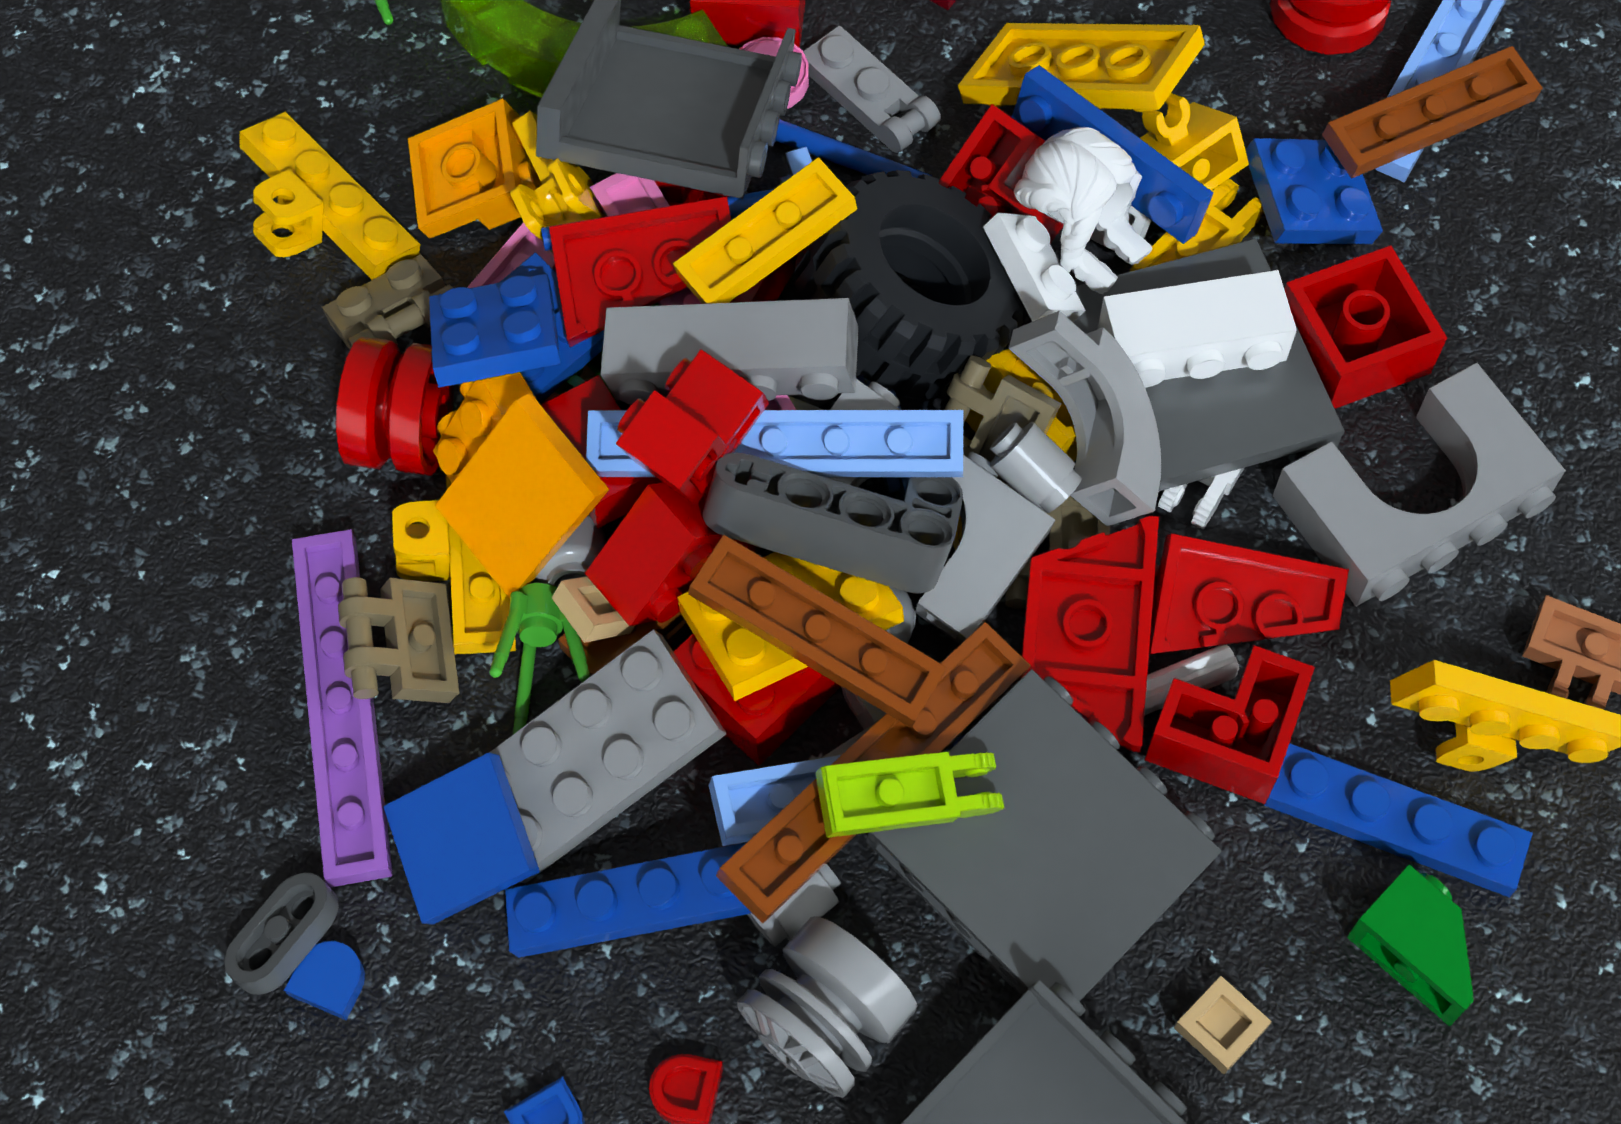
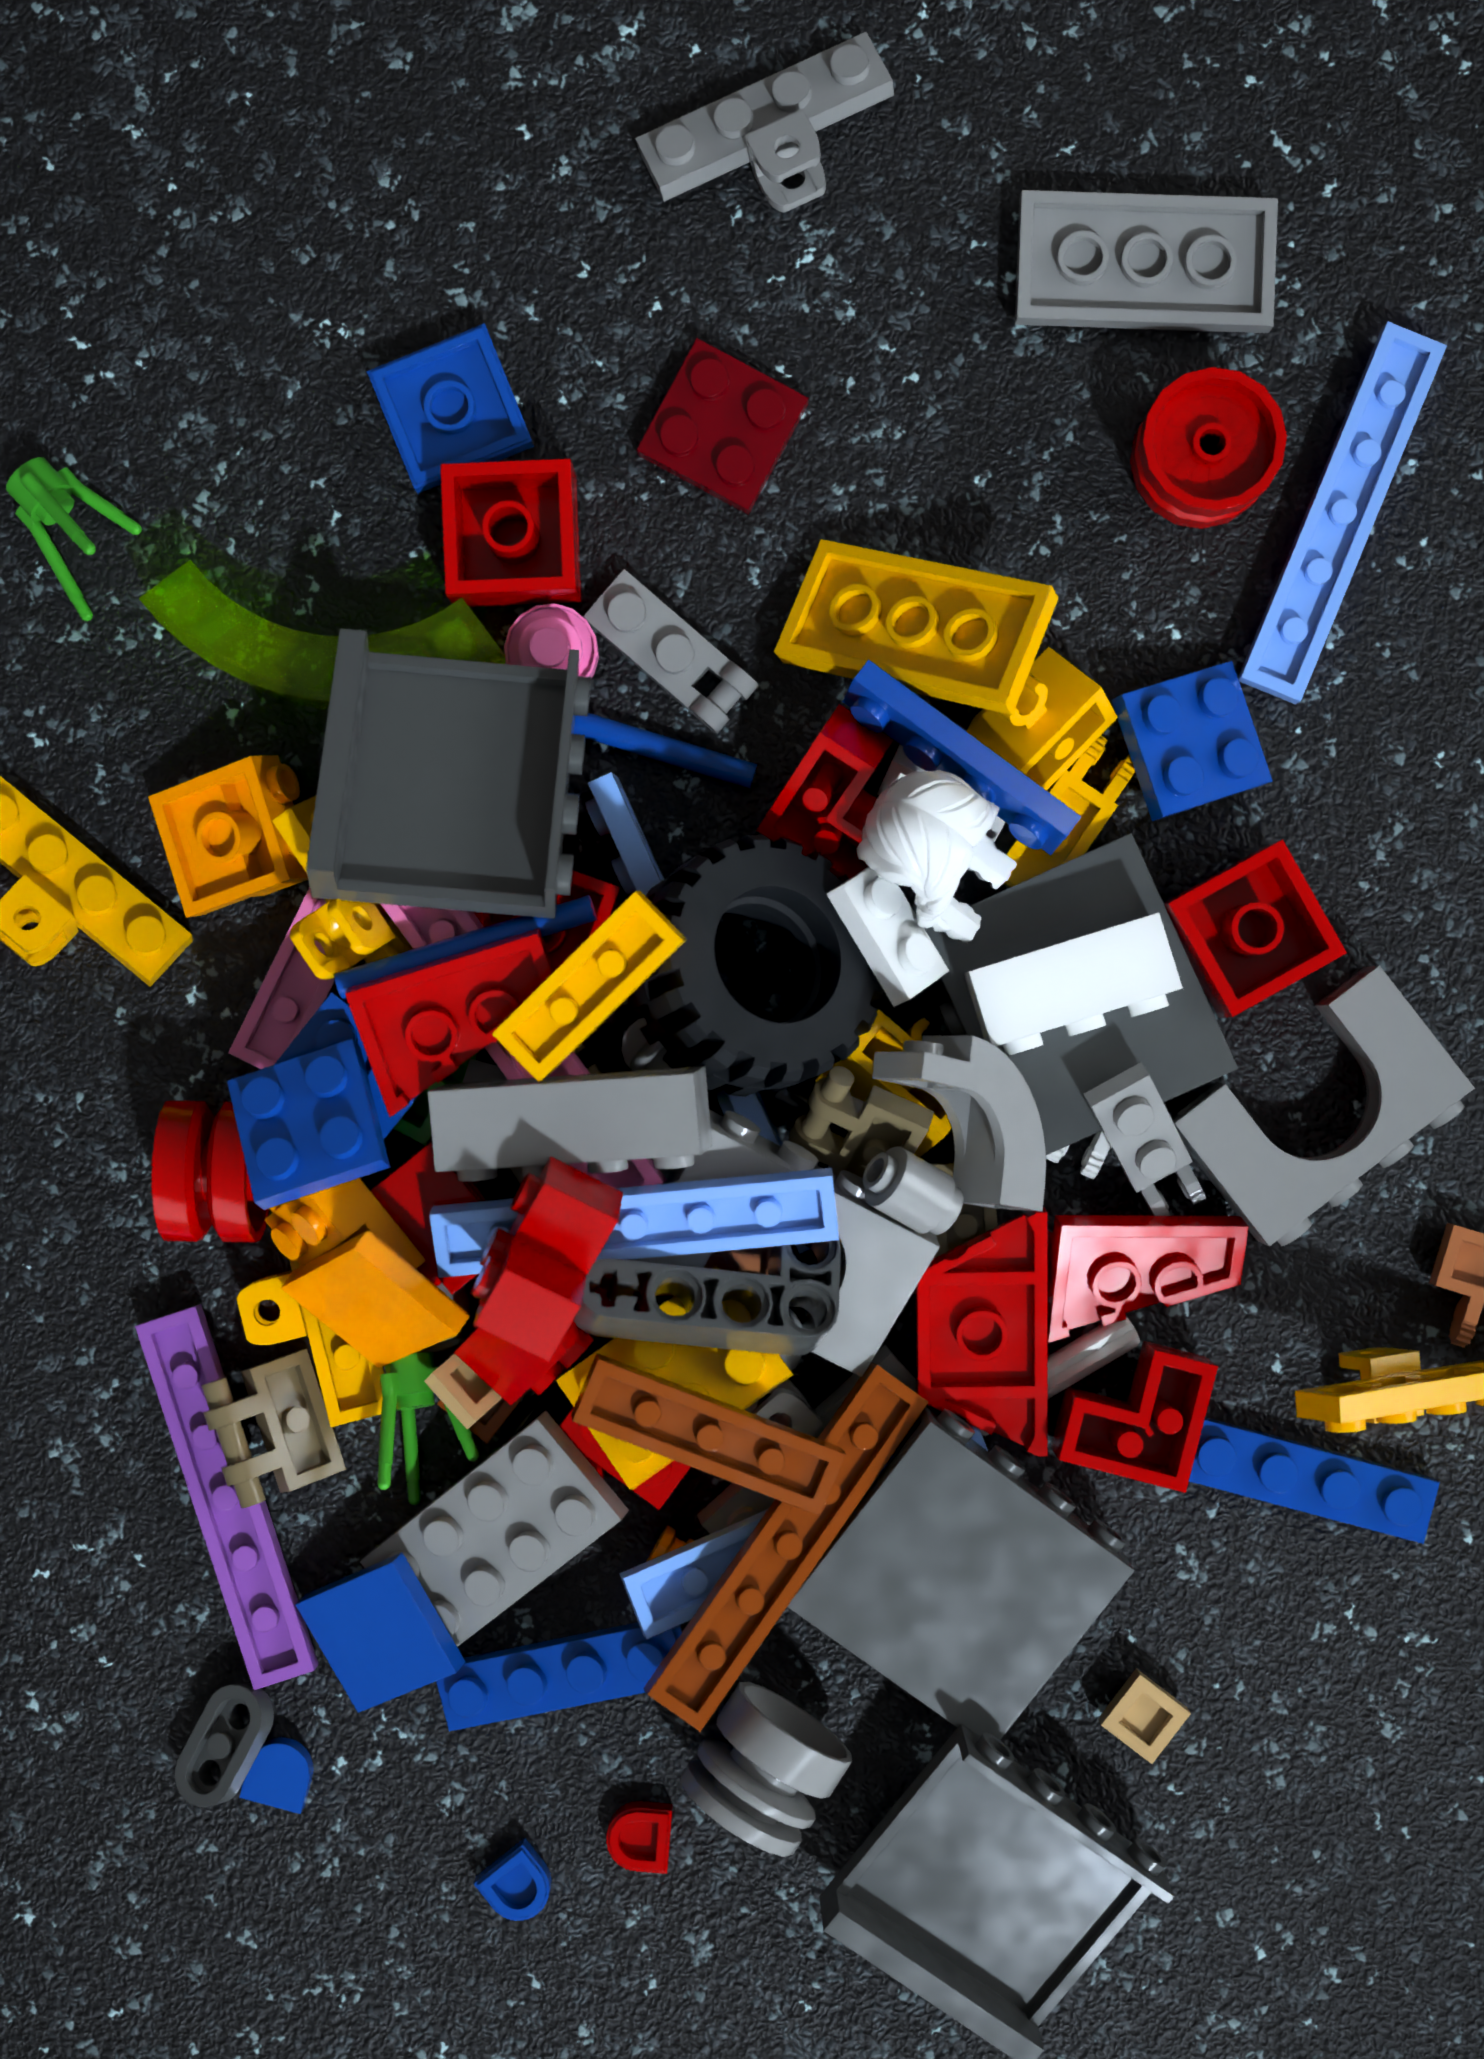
camera: 10 degrees left, 25 degrees up
(387, 304) = (168, 1018): dark tan plate -> none
(902, 792) = (818, 1587): lime hinge -> none
(1253, 475) = (1143, 1136): none -> light grey hinge
(1420, 942) = (1328, 1609): green slope -> none
(1431, 111) = (1326, 632): dark orange plate -> none

